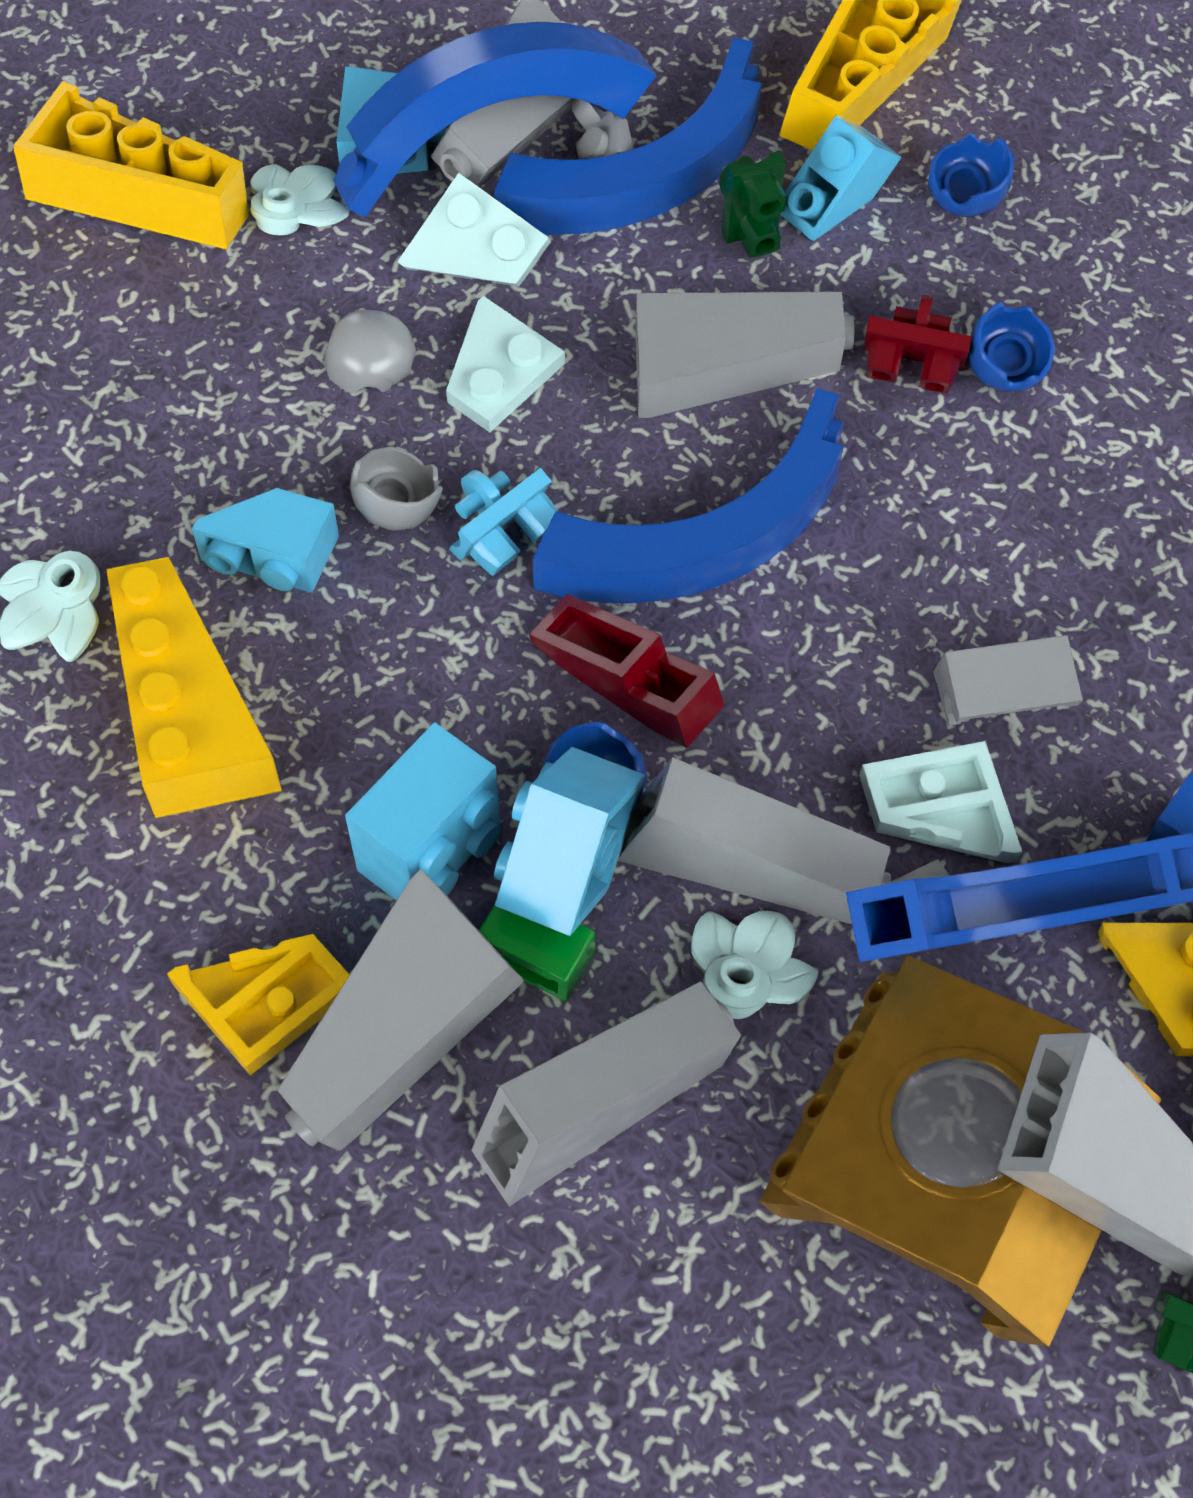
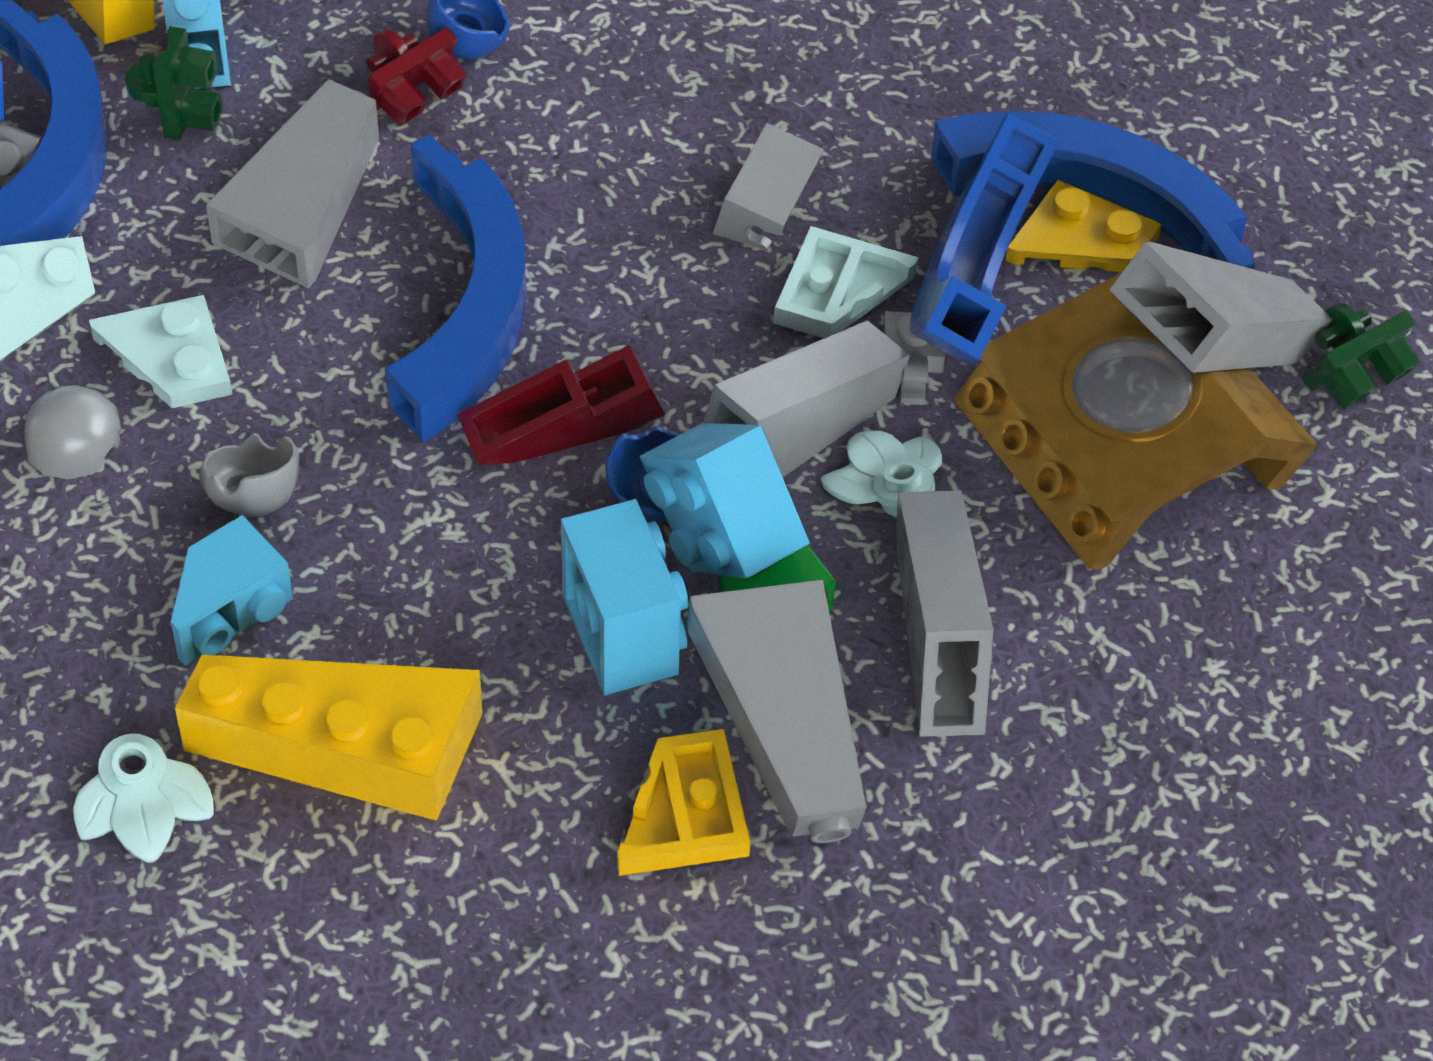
camera: 60 degrees left, 10 degrees down
(484, 535) = (336, 418): medium azure hips -> none

